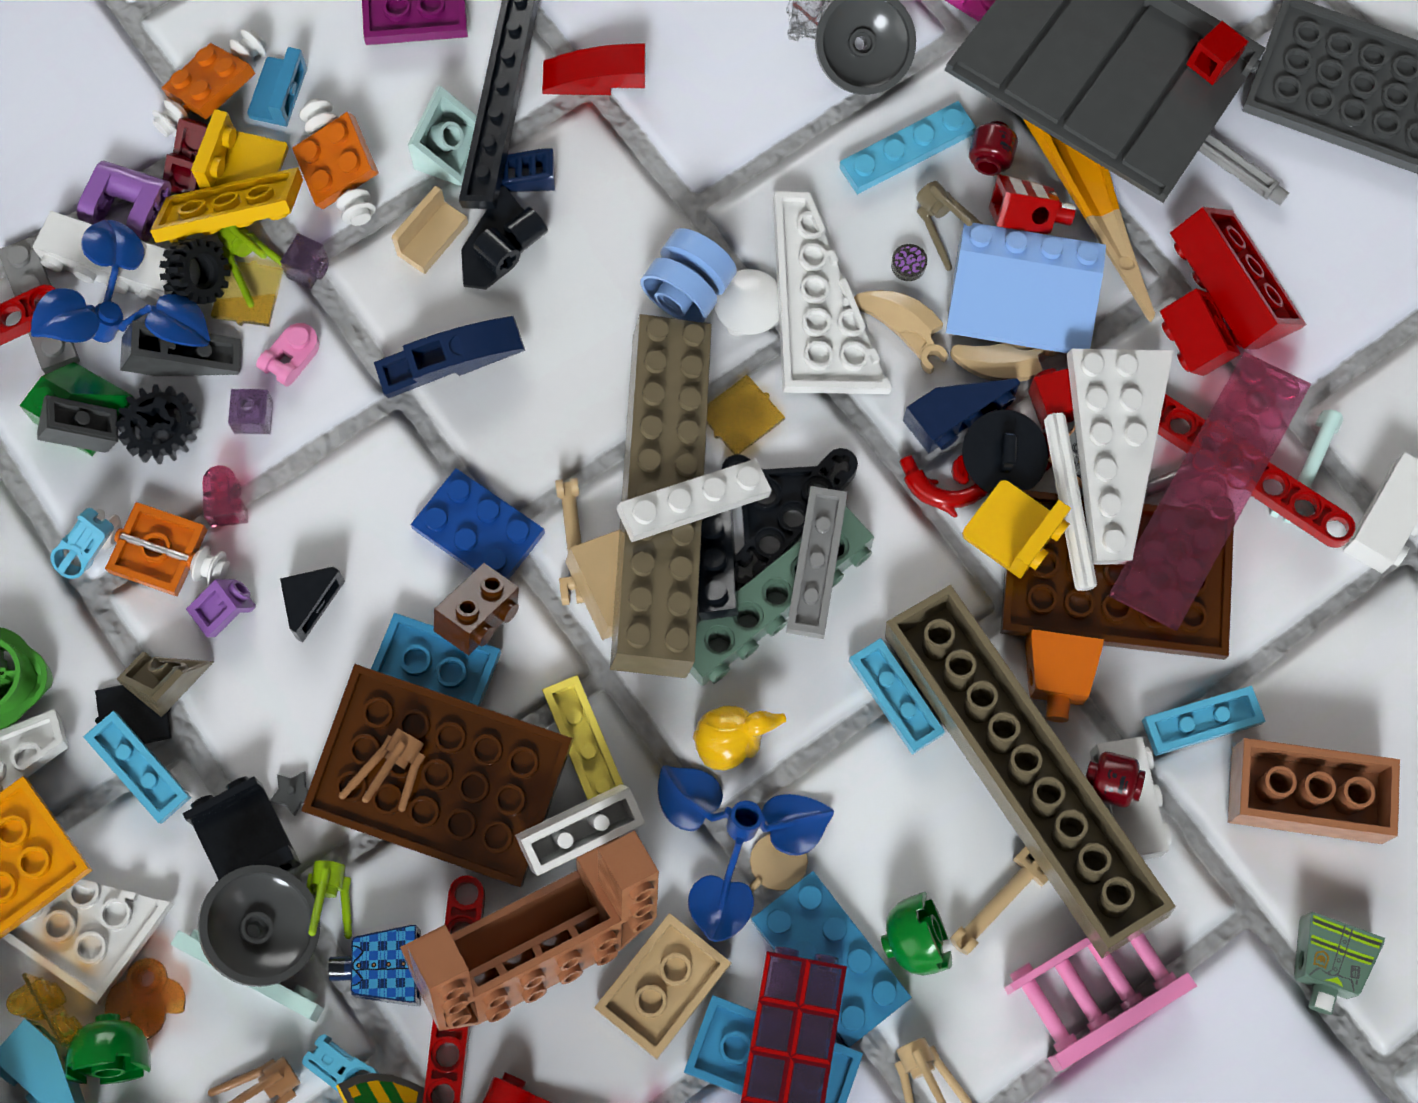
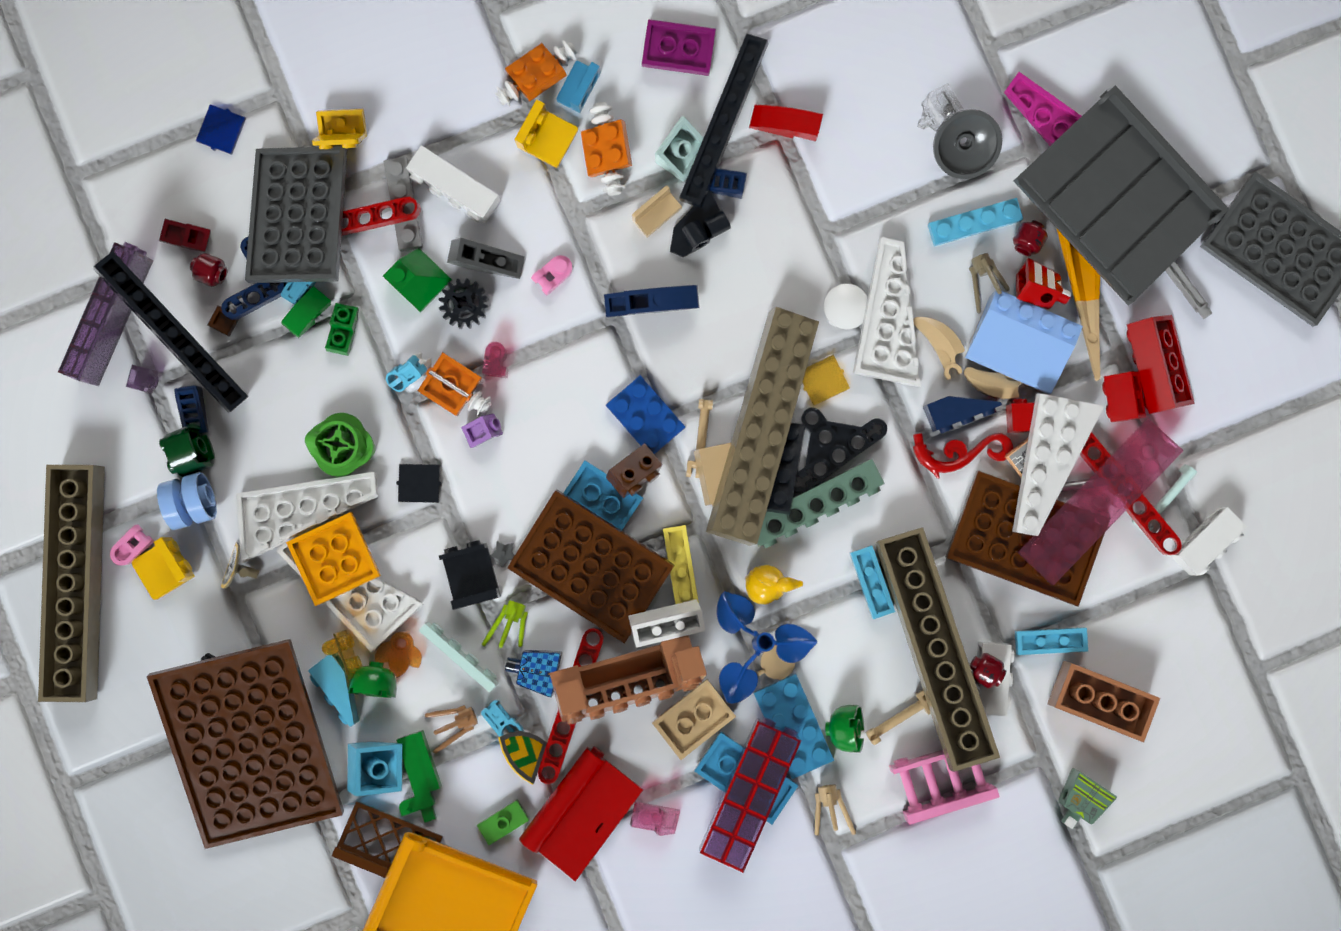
camera: 15 degrees right, 15 degrees up
(67, 318) = (423, 233): blue plant -> none
(77, 424) = (416, 294): dark grey slope -> none
(126, 184) = (473, 135): medium lavender connector -> none
(137, 767) = (416, 518): medium azure plate -> none
(161, 680) = (439, 467): dark tan slope -> none
(179, 163) = (511, 124): dark red slope -> none
(211, 270) = (495, 204): black tyre -> none
(227, 205) = (533, 168): yellow plate -> none
(241, 243) = (536, 190): lime plant -> none
(251, 421) = (525, 315): clear purple plate -> none
(263, 286) = (533, 225): clear yellow piece -> none
(277, 906) = (485, 629): dark grey dish -> none
(305, 261) = (574, 214): clear purple plate -> none
(308, 597) = (534, 437): black slope -> none
(398, 750) = (572, 551): medium nougat plant -> none
(688, 275) = (816, 281): light blue wheel -> none
(693, 500) = (780, 442): white plate -> none
(816, 562) = (845, 493): light grey plate -> none
(909, 262) = (954, 302): clear smoke tile -> none
(1005, 448) = (980, 446): black shield -> none
(1015, 528) = (972, 499): yellow bracket -> none
(1061, 670) = (975, 591): orange torso -> none
(1069, 493) = (1010, 489): white axle -> none
(1217, 52) = (1196, 207): red brick -> none

